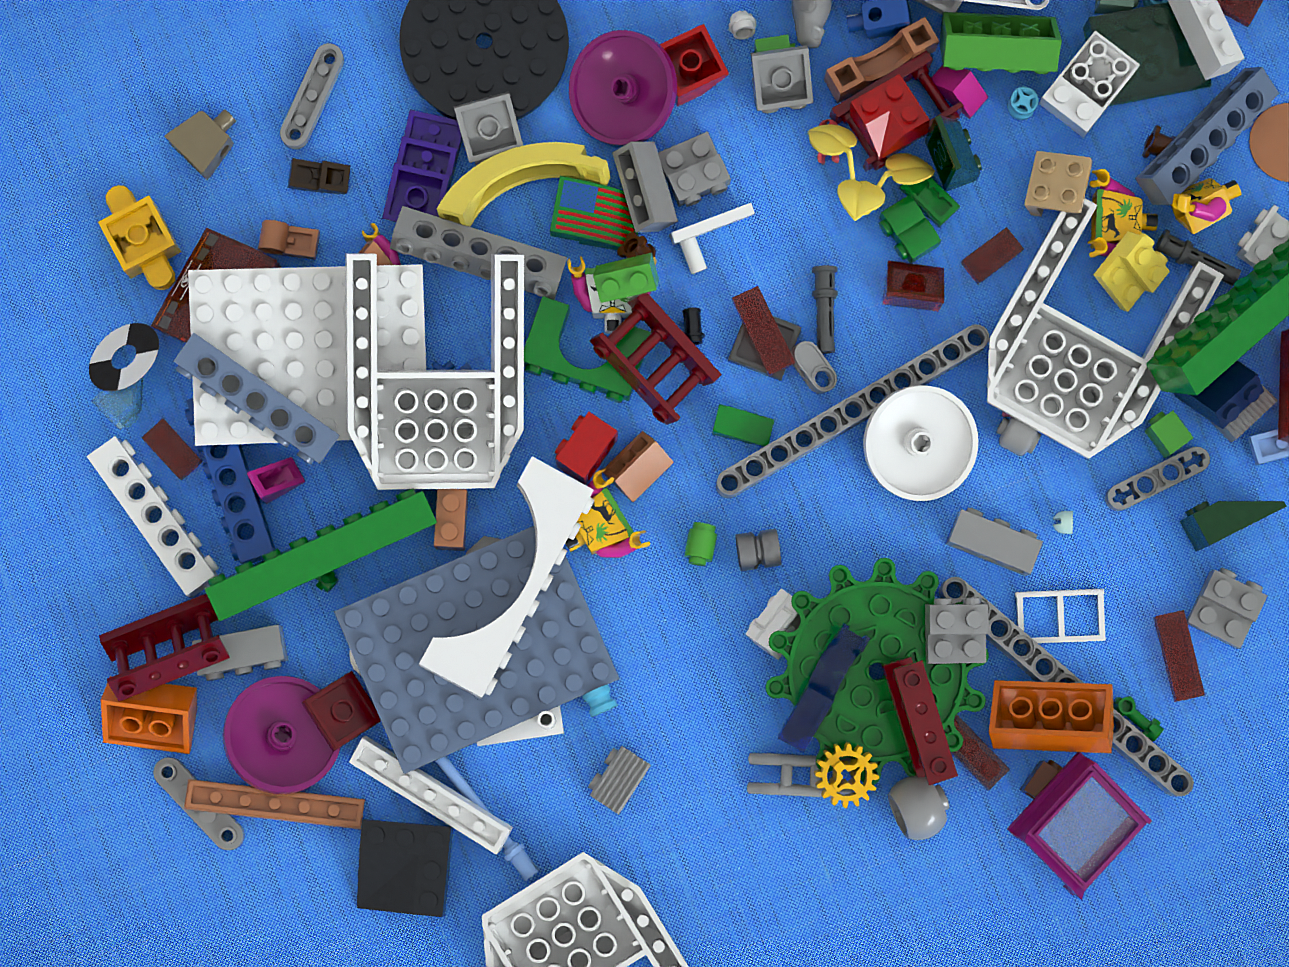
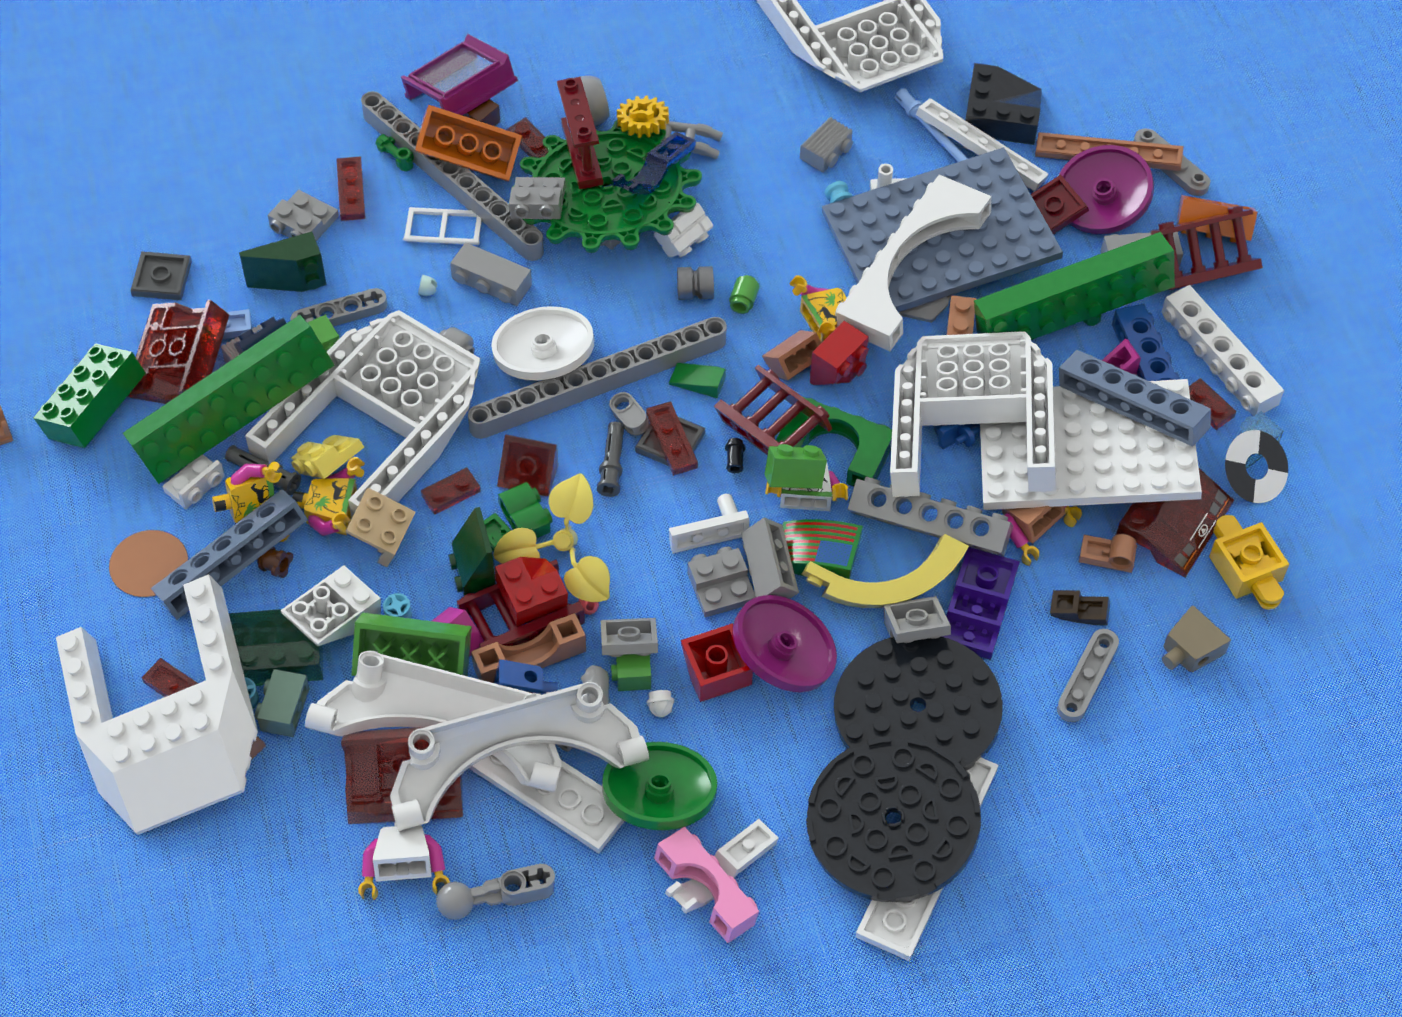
camera: 175 degrees left, 25 degrees down
(635, 246) = (782, 512): reddish brown brick -> none

